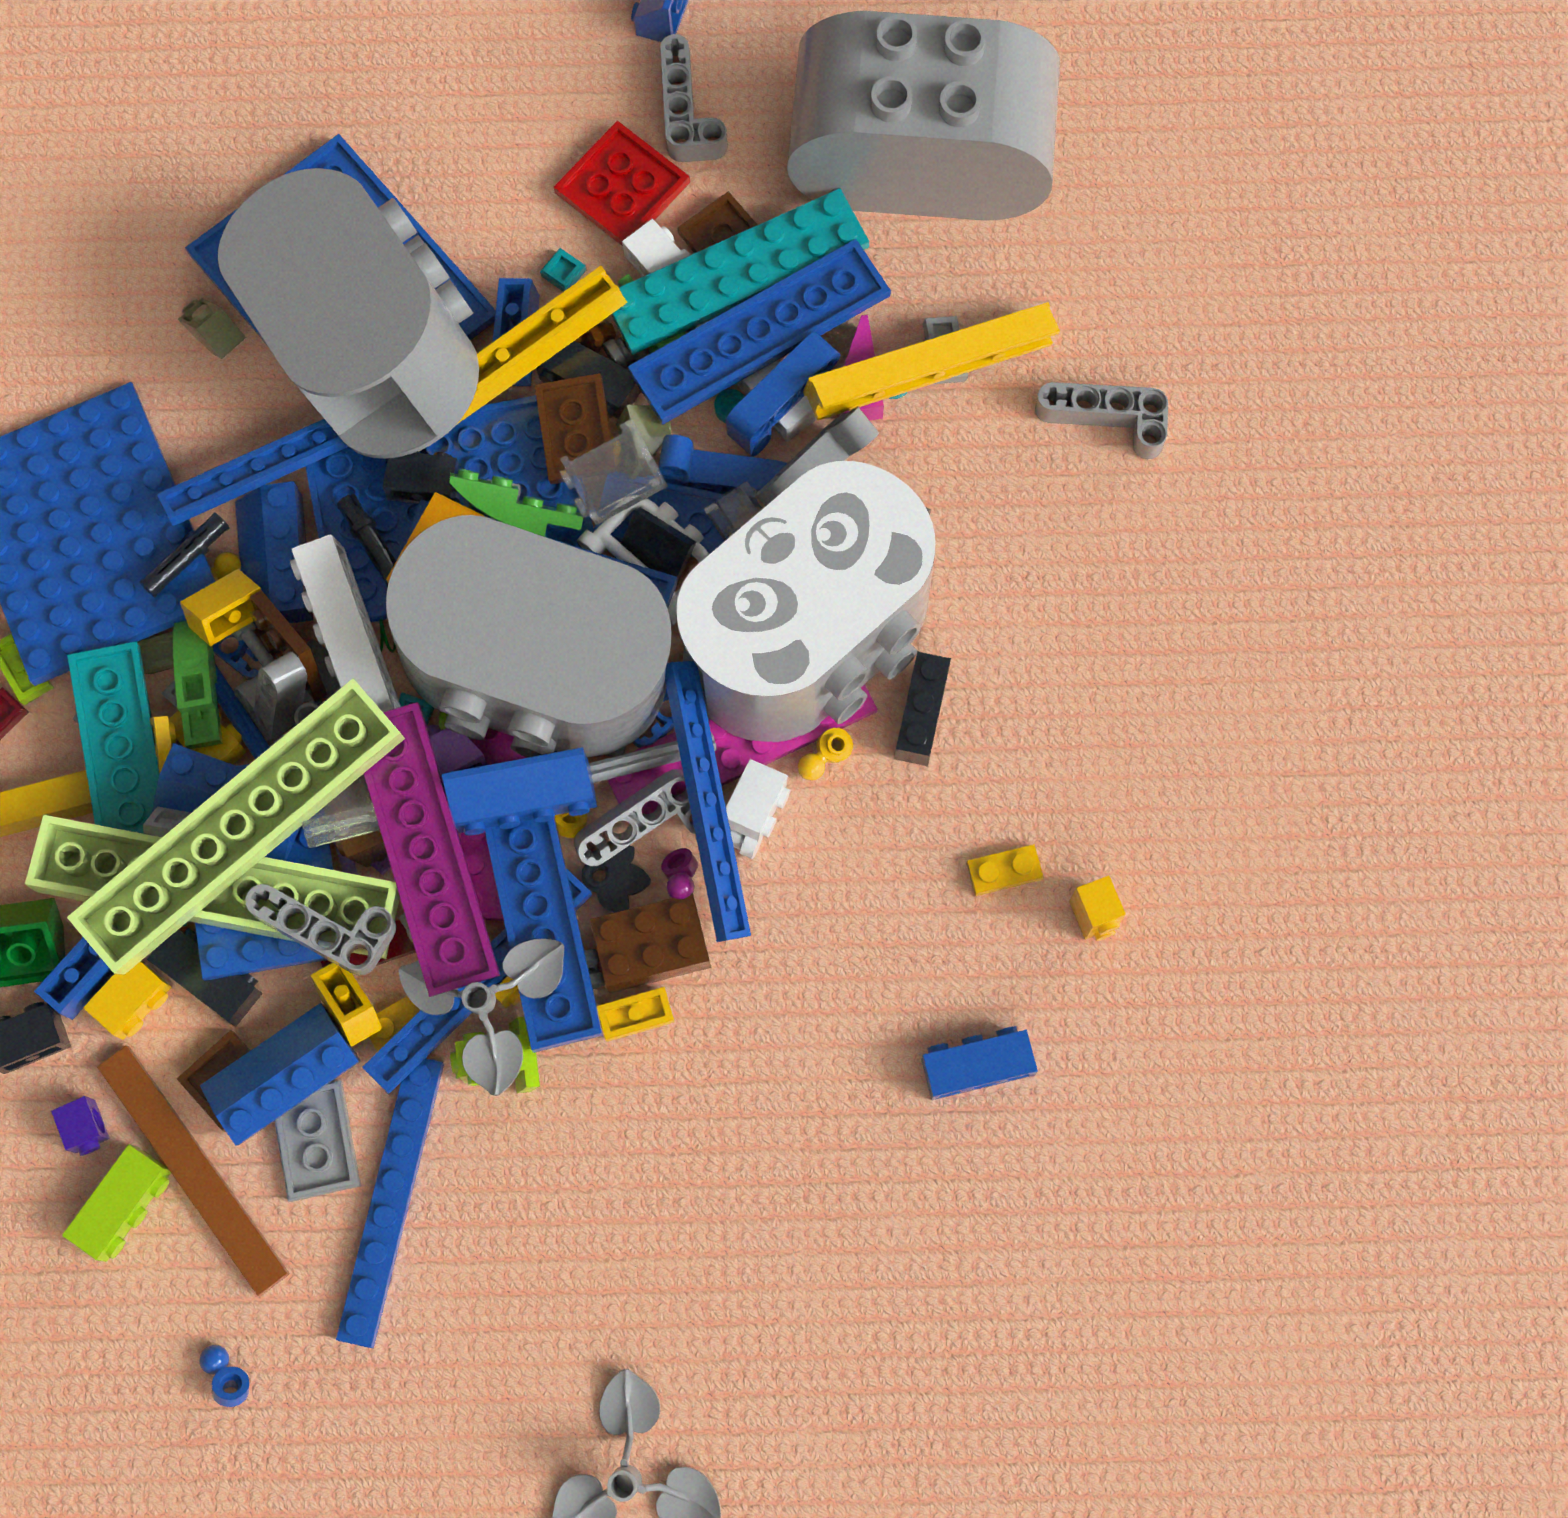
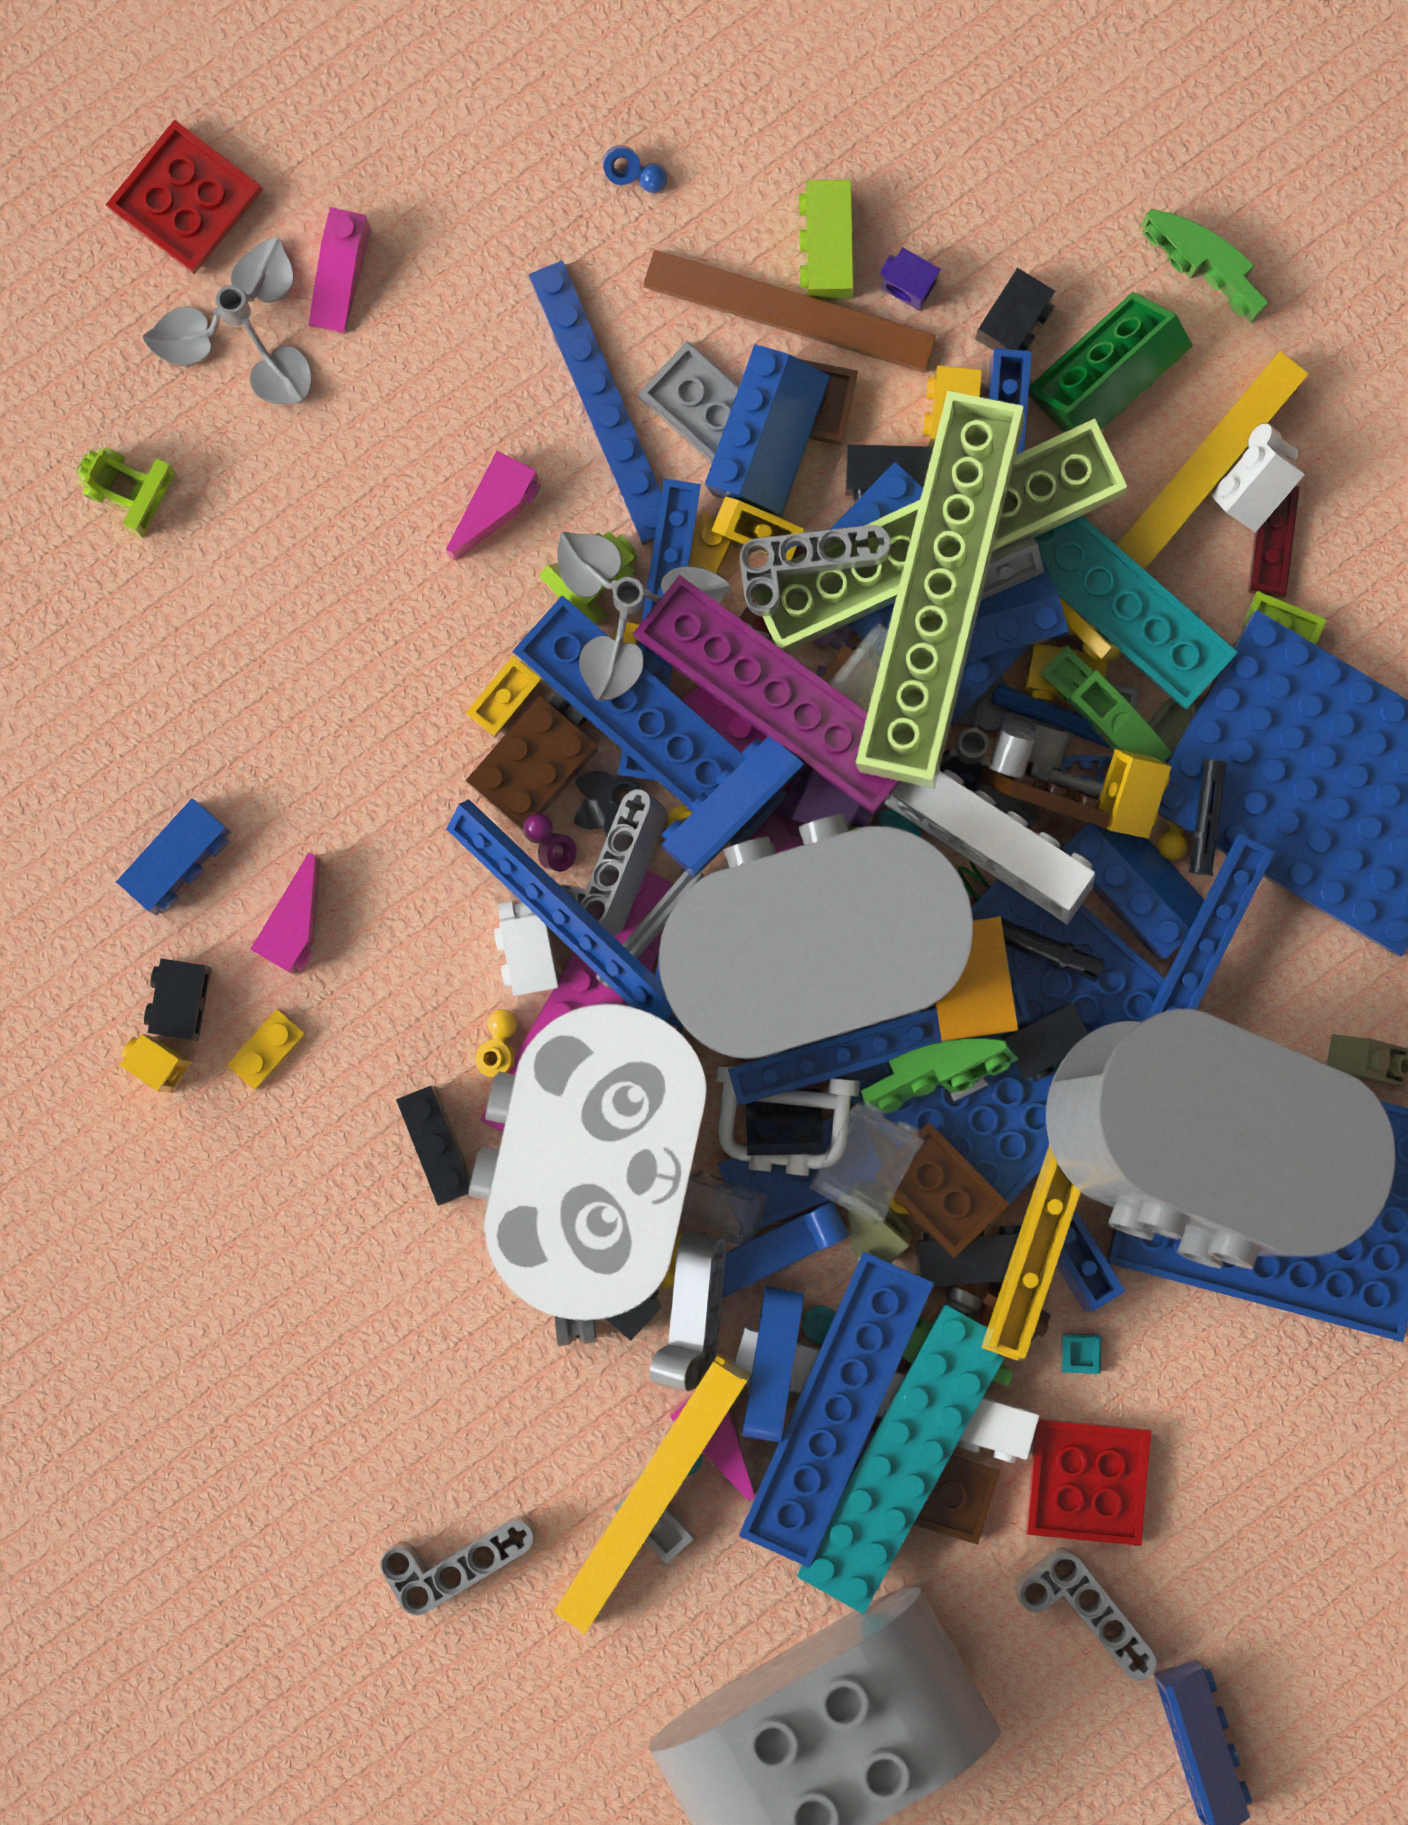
camera: 145 degrees right, 10 degrees up
(520, 1463) = (338, 269): none -> dark pink slope
(527, 1175) = (497, 500): none -> dark pink slope
(834, 1429) = (99, 472): none -> lime tile
(924, 946) = (291, 925): none -> dark pink slope
(1048, 950) = (177, 999): none -> black brick

